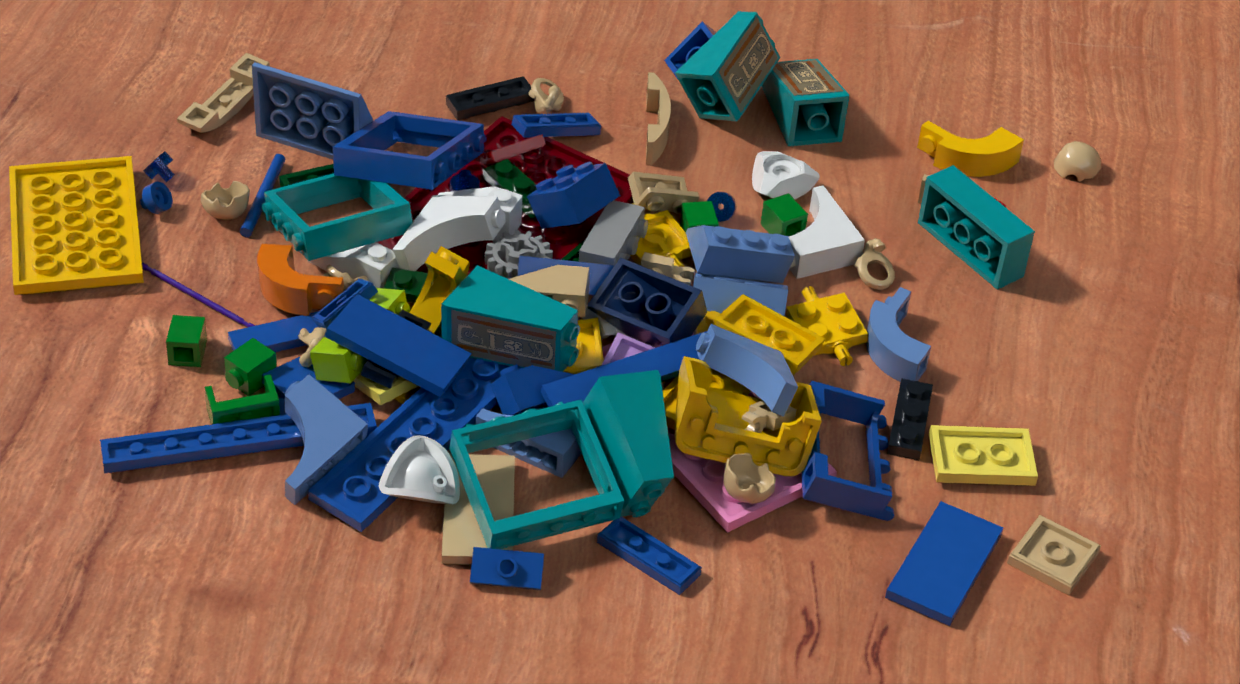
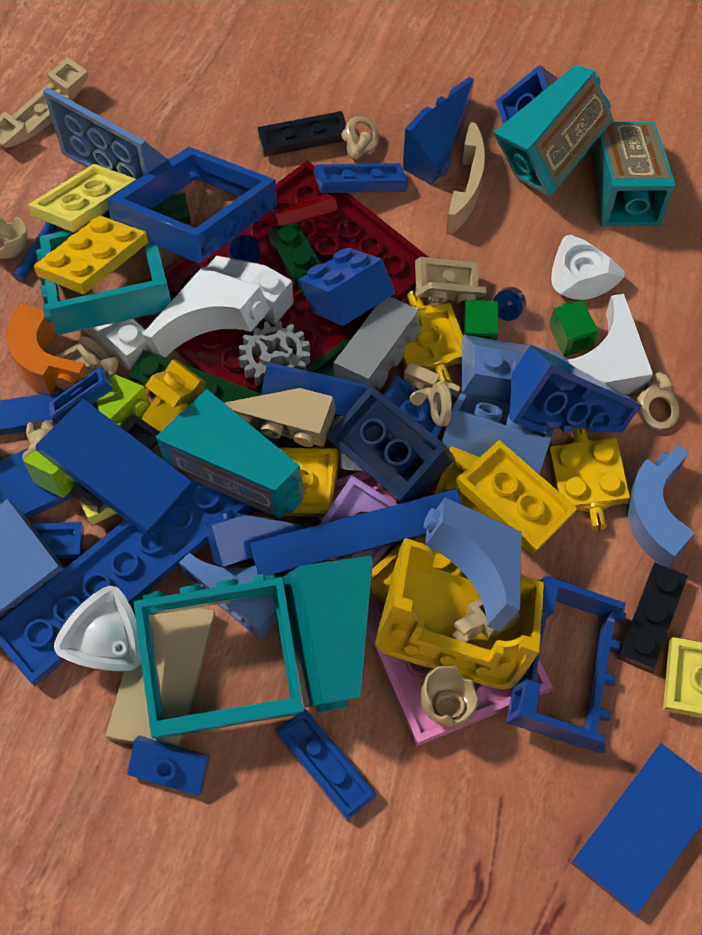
camera: 15 degrees right, 20 degrees up
(294, 160) = (80, 198): none -> light yellow plate
(326, 192) = (91, 254): none -> yellow plate
(617, 87) = (434, 134): none -> blue wedge
(681, 270) = (439, 402): none -> tan piece
(794, 259) = (560, 396): none -> blue wedge

